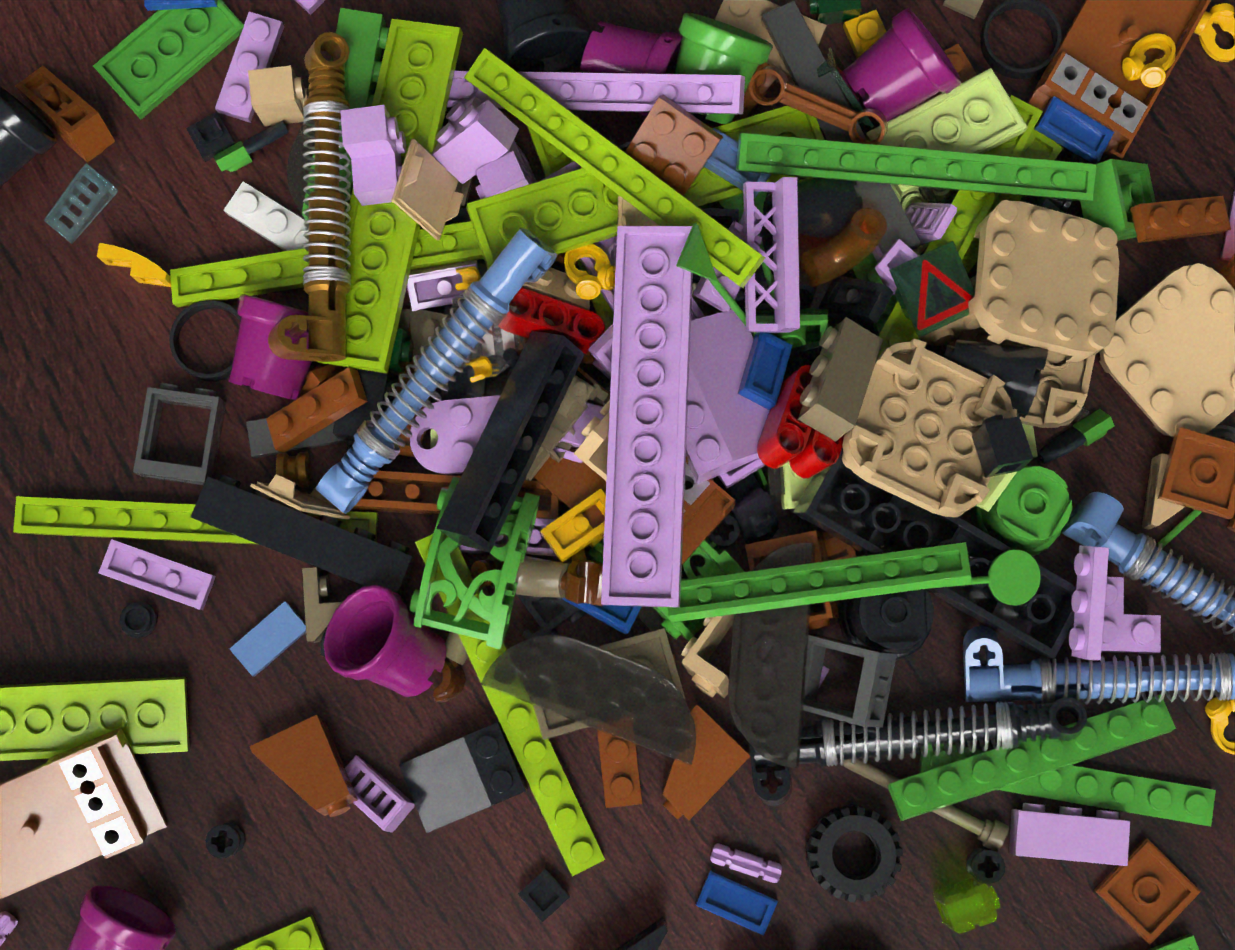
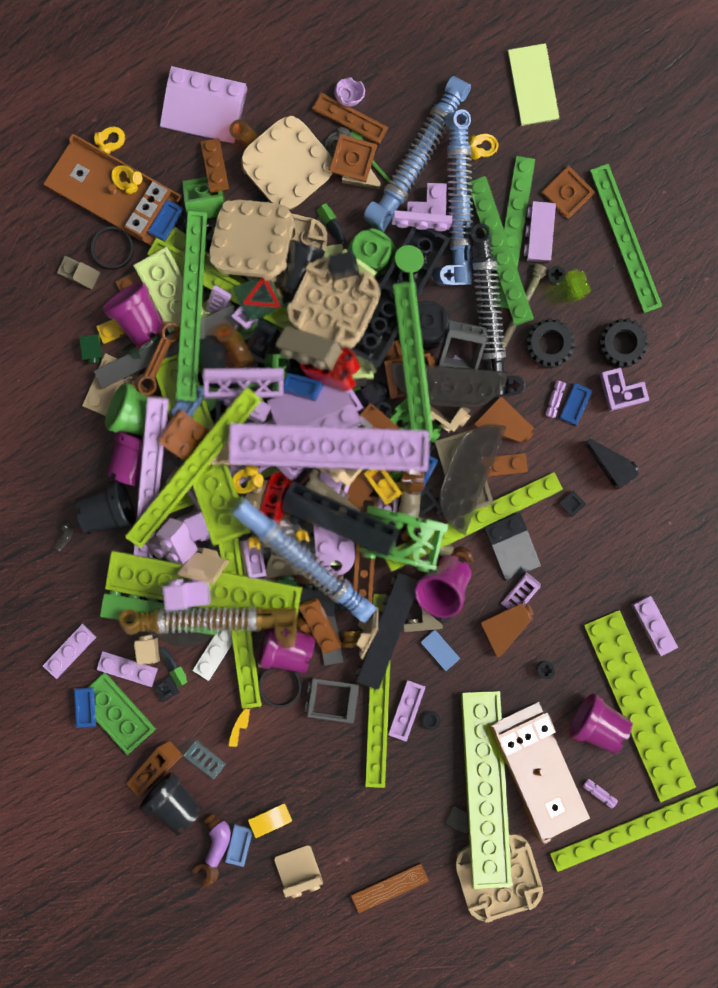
camera: 90 degrees left, 5 degrees up
(696, 260) = (249, 421): bright green piece -> none

